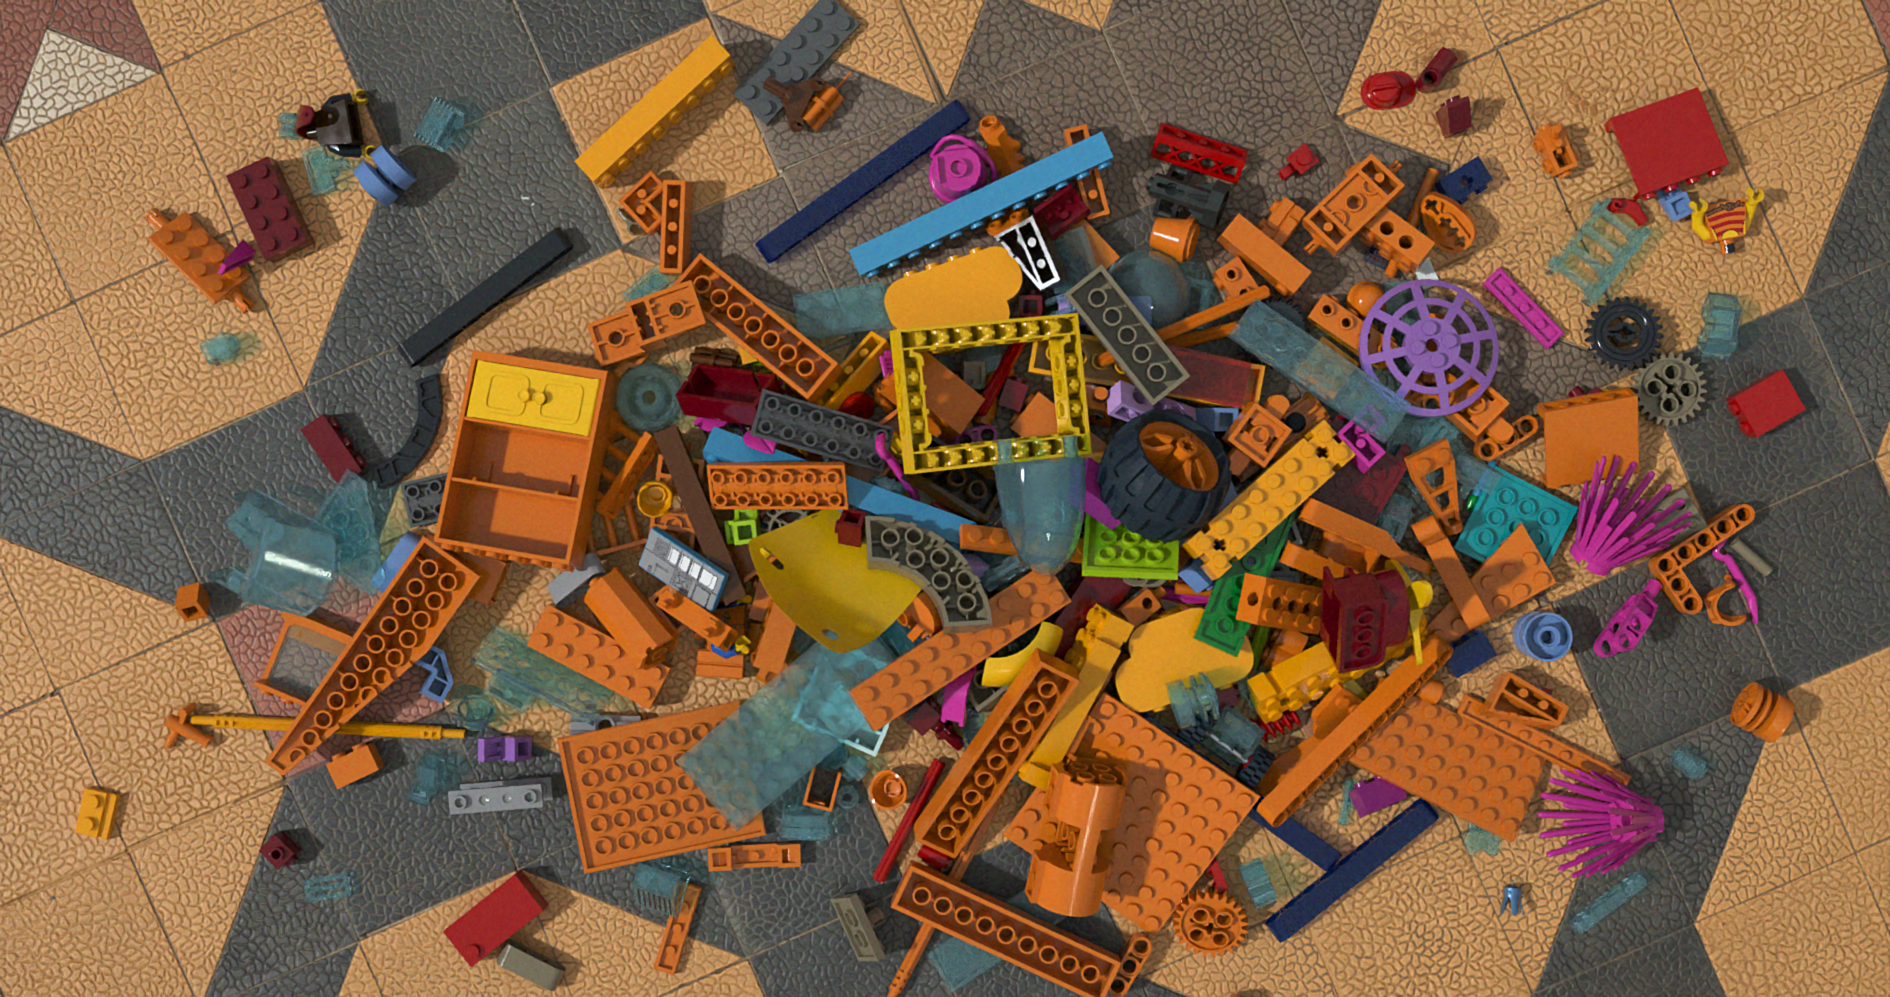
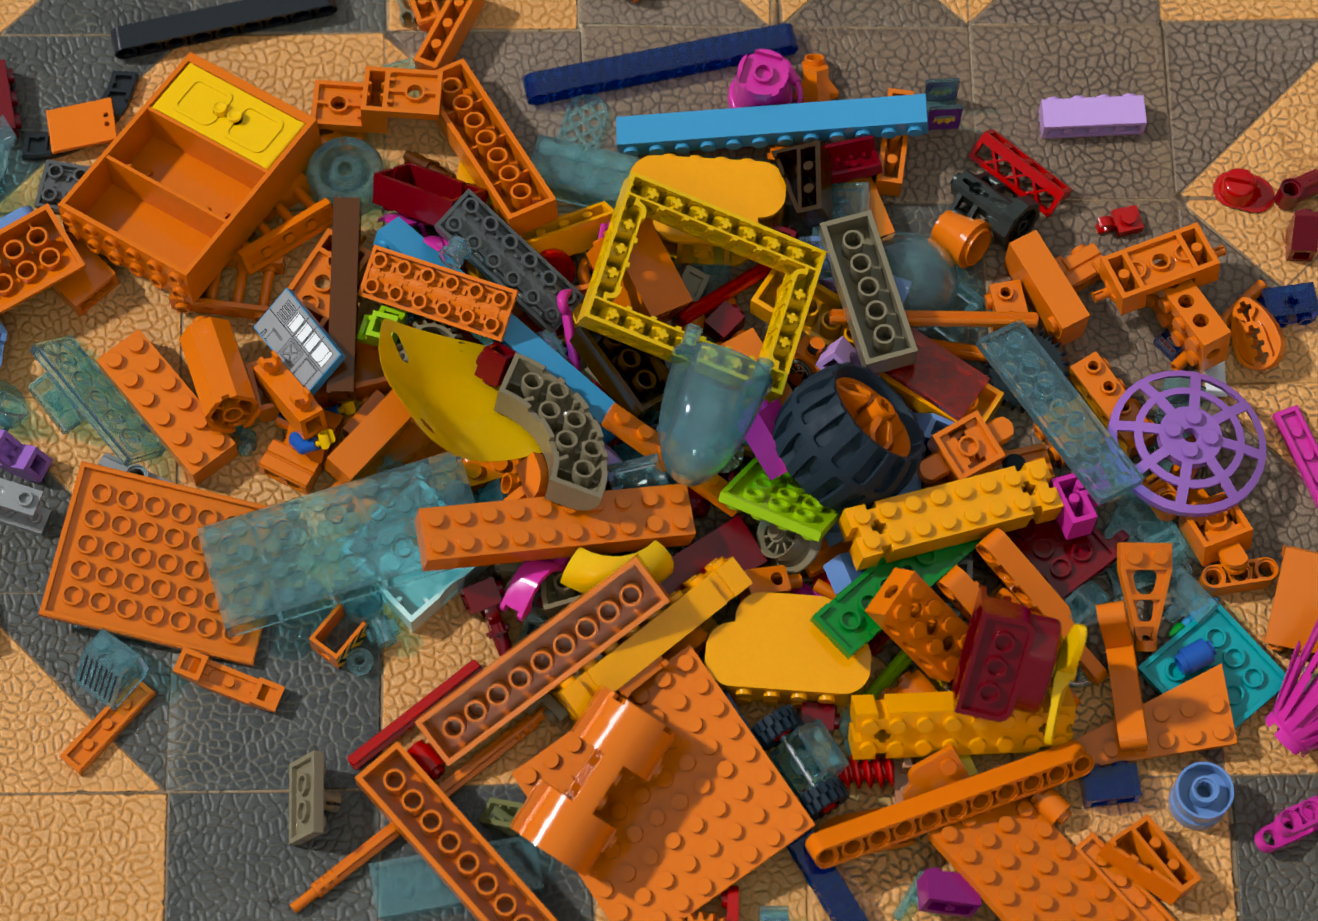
camera: 15 degrees right, 20 degrees down
(414, 443) = (81, 125): none -> orange container
(572, 585) = (171, 321): light grey beam -> none
(654, 498) = (304, 262): light orange hair -> none
(678, 657) = (247, 440): none -> clear light blue arm
(778, 450) = (455, 252): none -> clear light blue wheel
(805, 824) = (301, 669): clear light blue brick -> none
(814, 266) = (584, 120): none -> clear light blue window
(888, 790) = (409, 666): orange helmet -> none
(1011, 873) = (499, 815): none -> olive slope
(1113, 111) = (941, 103): none -> clear light blue piece
(1193, 700) = (783, 682): clear light blue wheel -> none
(1239, 77) = (1092, 116): none -> lavender brick
(1363, 296) = (1136, 371): orange helmet -> none
(1498, 524) = (1195, 656): none -> blue brick

